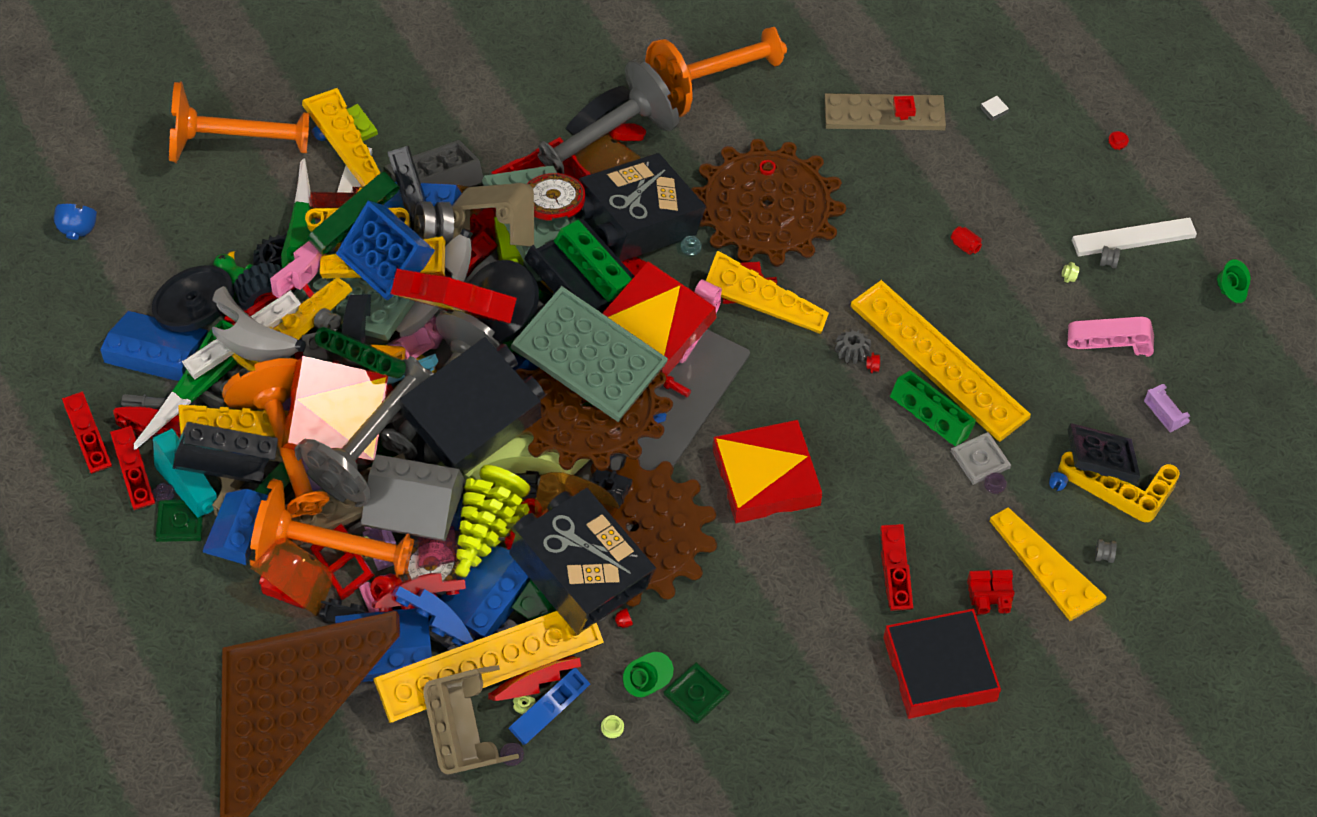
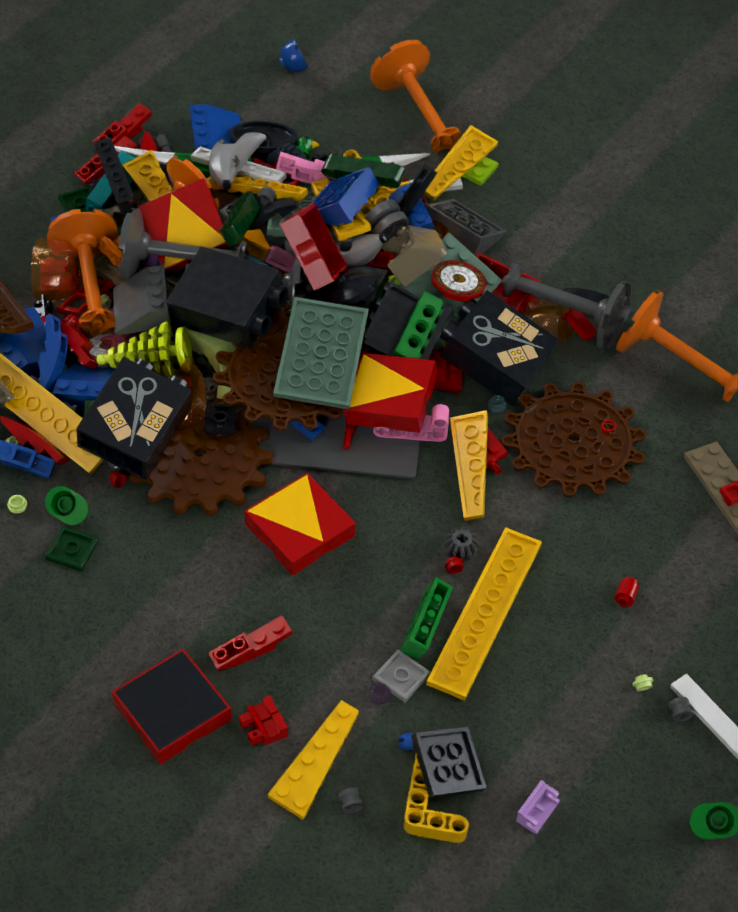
camera: 65 degrees right, 5 degrees down
(1113, 333) = (591, 737): bright pink beam -> none

